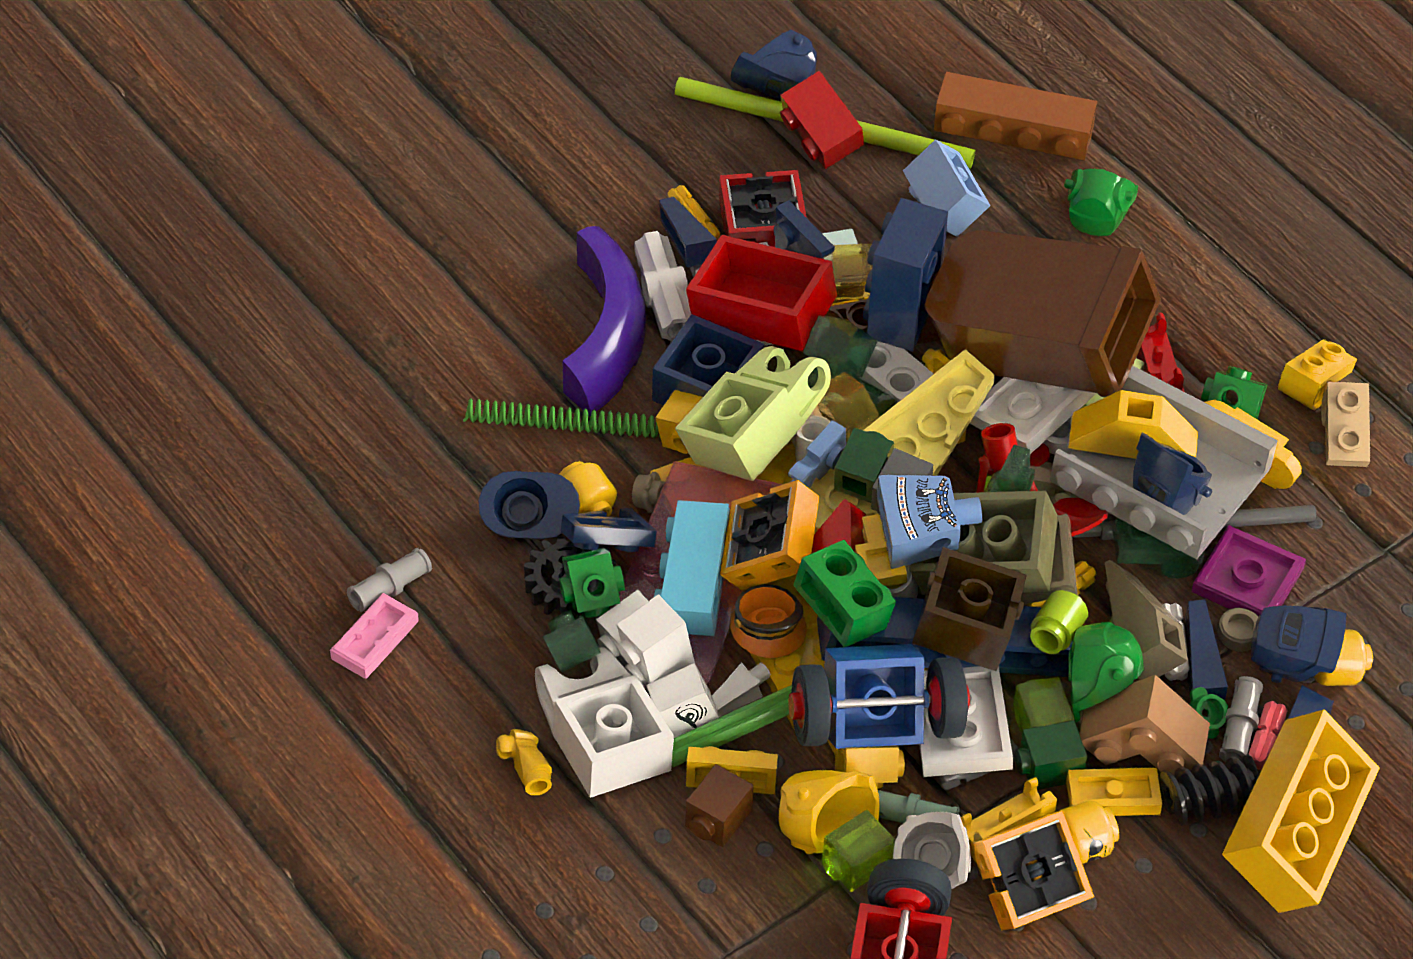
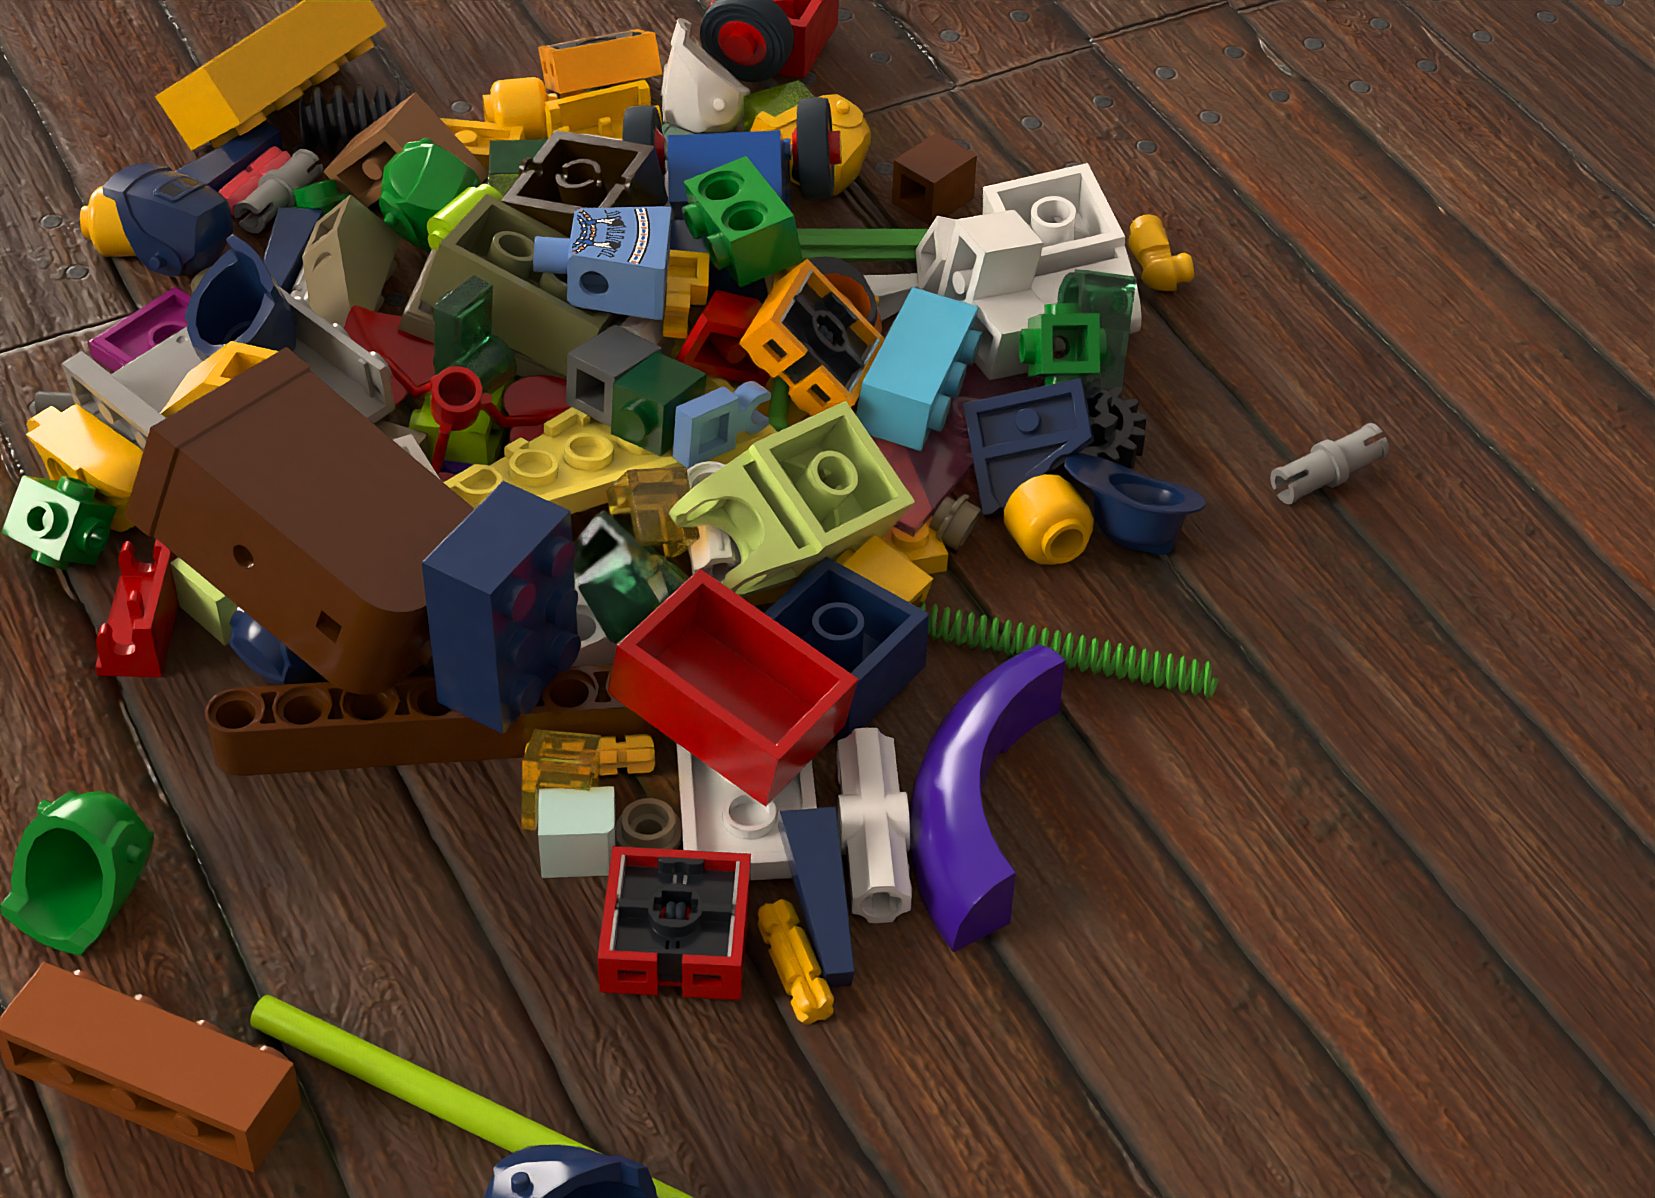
camera: 170 degrees left, 5 degrees down
(374, 635) = (1348, 401): bright pink plate -> none
(752, 766) = (905, 203): yellow plate -> none
(798, 234) = (651, 743): dark blue wing -> none
(821, 120) = (519, 1071): red brick -> none
(945, 182) = (343, 909): light blue brick -> none

